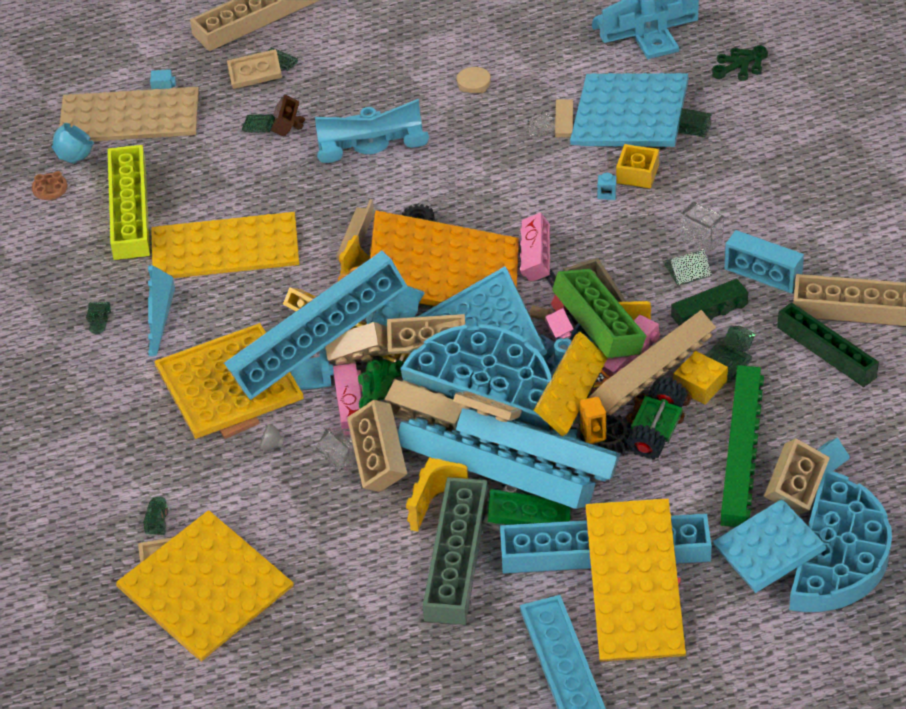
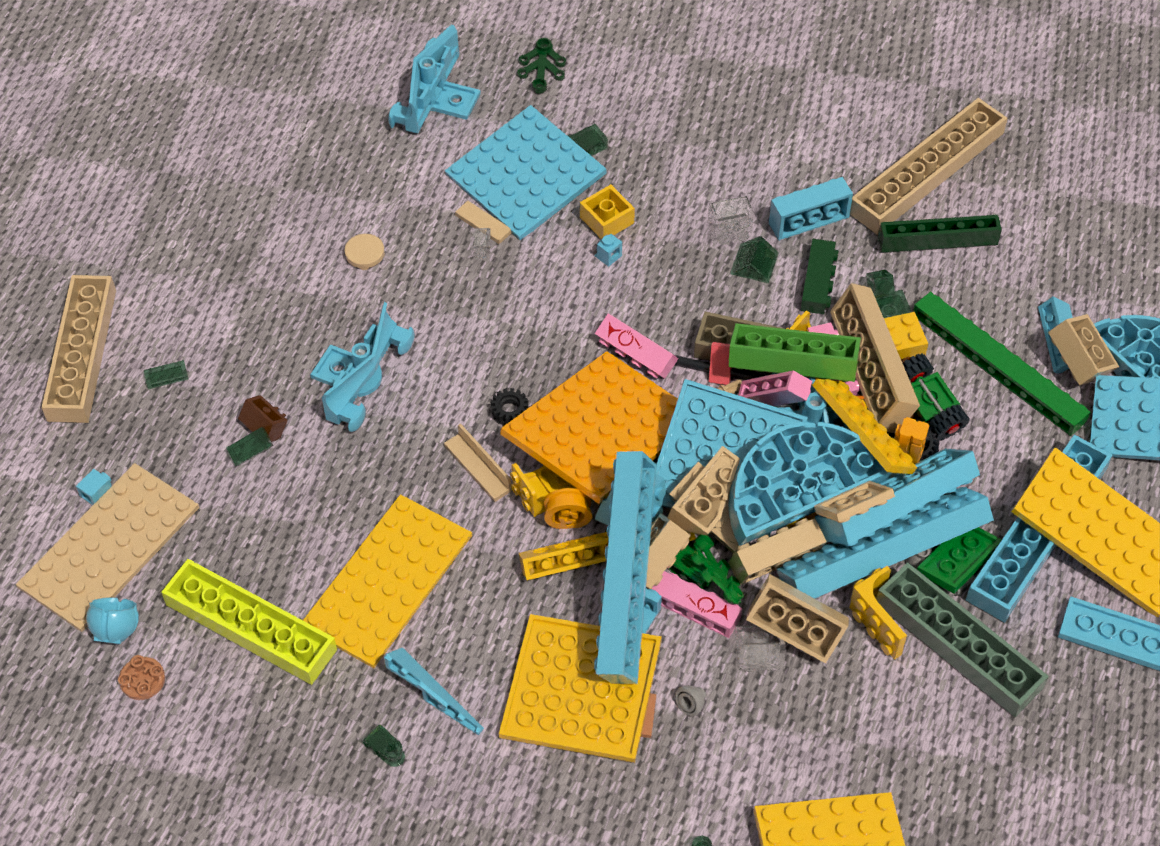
camera: 55 degrees left, 10 degrees up
(254, 69) = (164, 402): tan plate -> none

